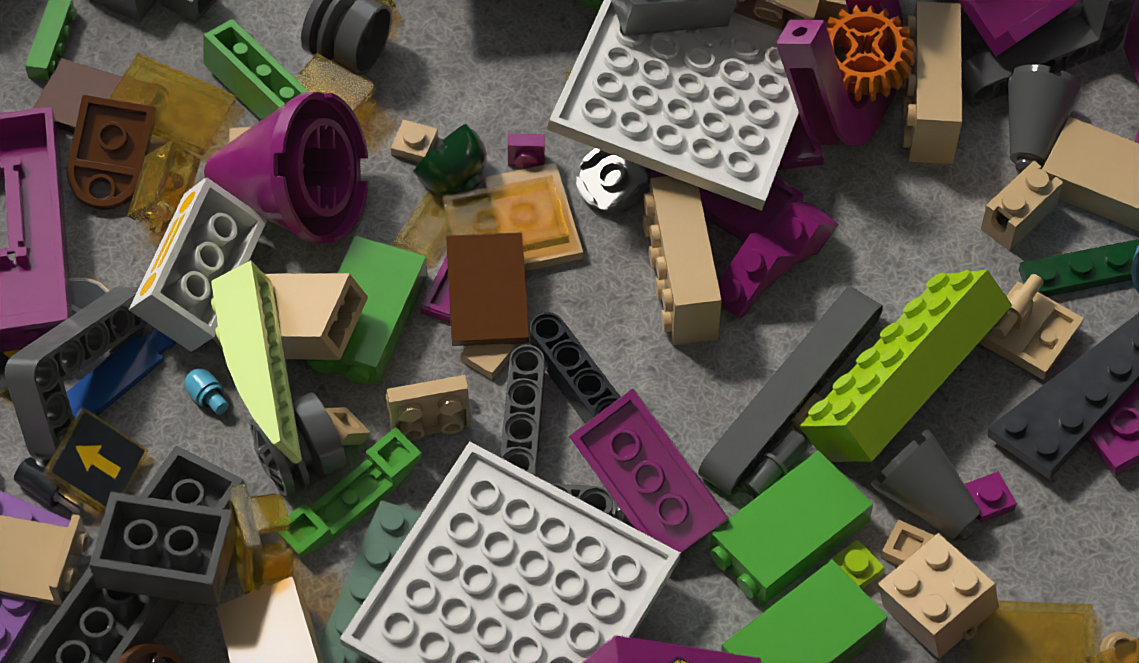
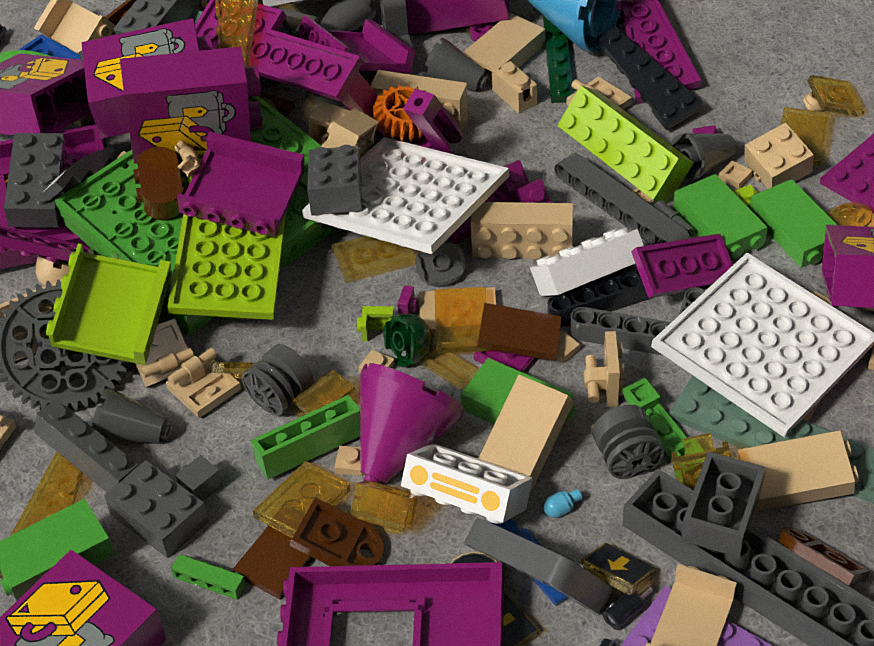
camera: 75 degrees left, 10 degrees down
(255, 352) = (569, 438): yellowish green slope -> none
(485, 110) = (373, 319): none -> lime bracket
(631, 348) = (585, 262): none -> white brick

